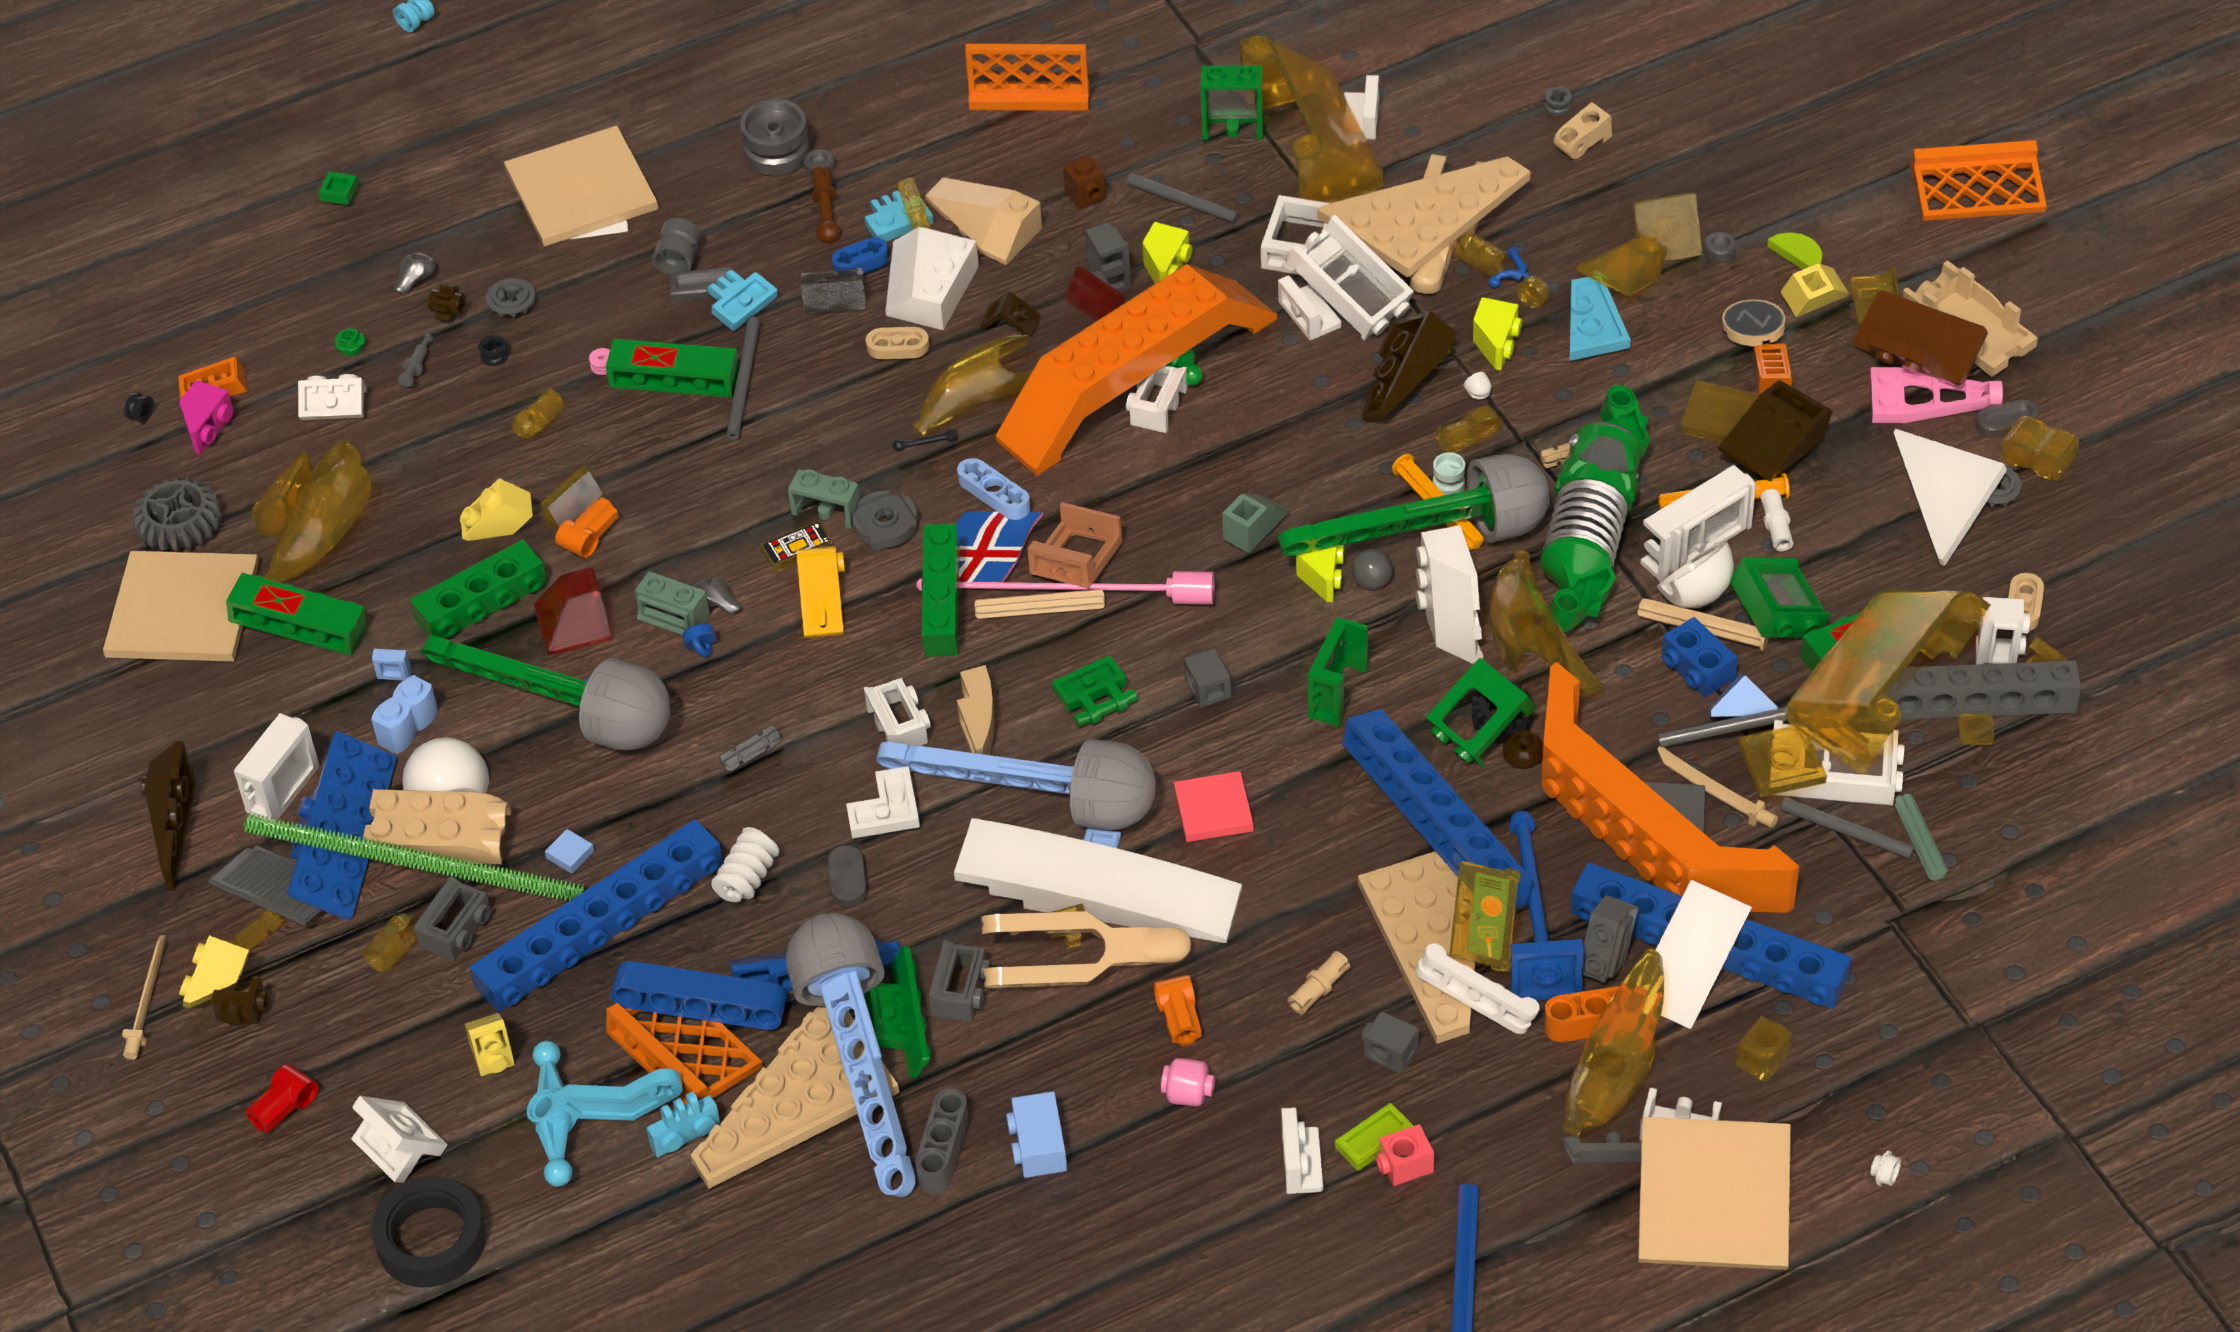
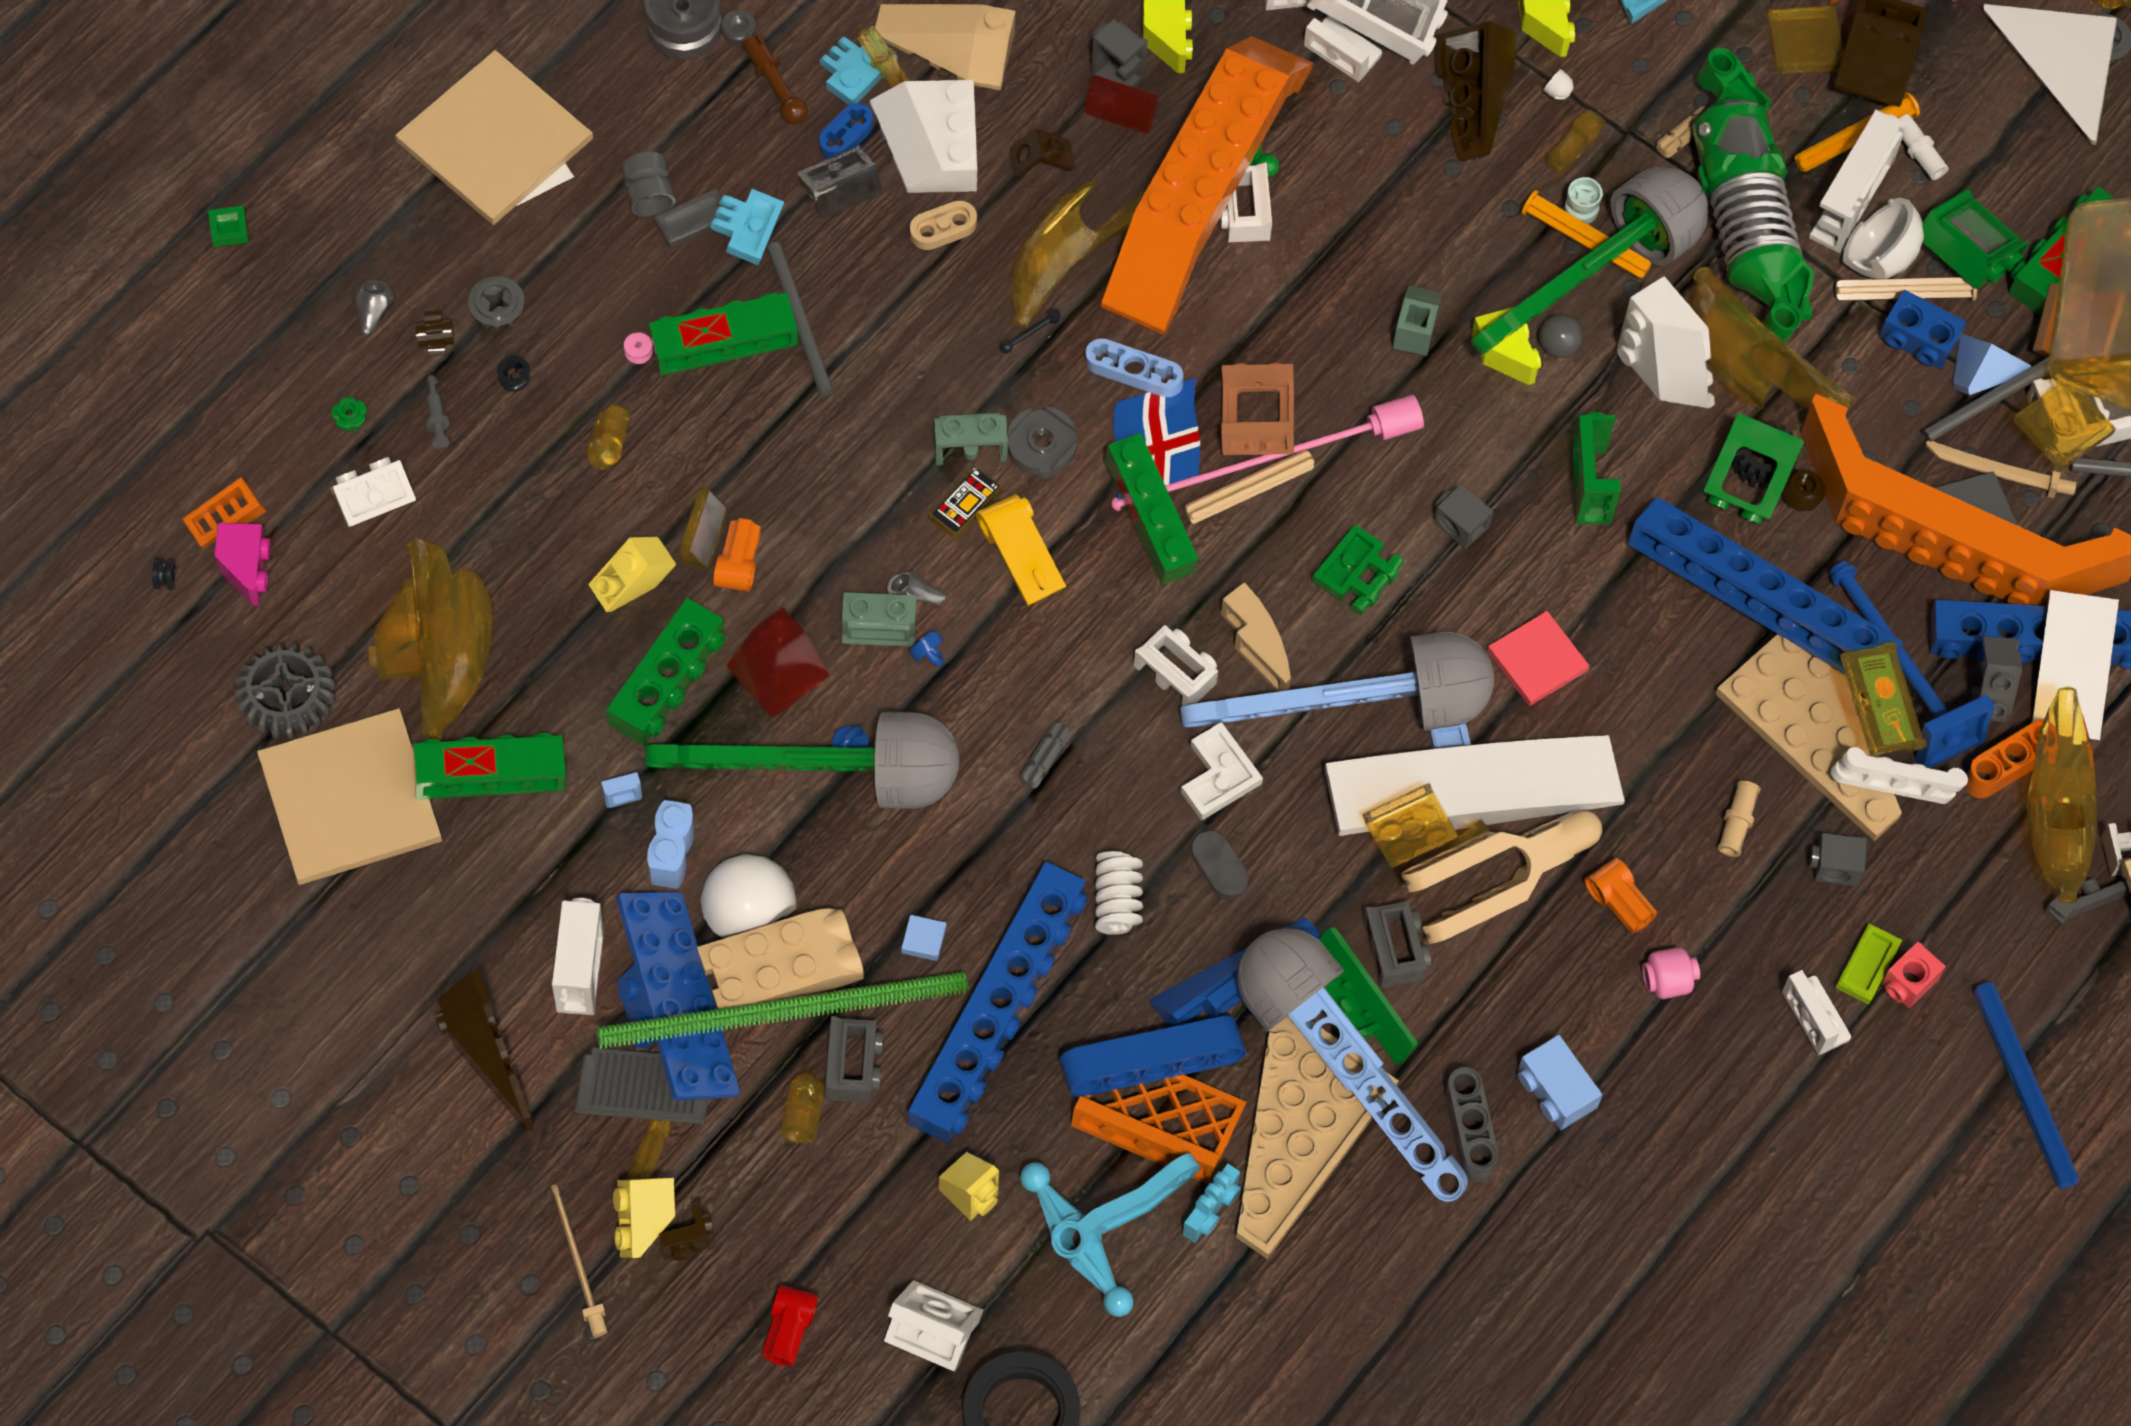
camera: 30 degrees left, 15 degrees up
(1015, 883) = (1410, 825): none -> clear yellow plate

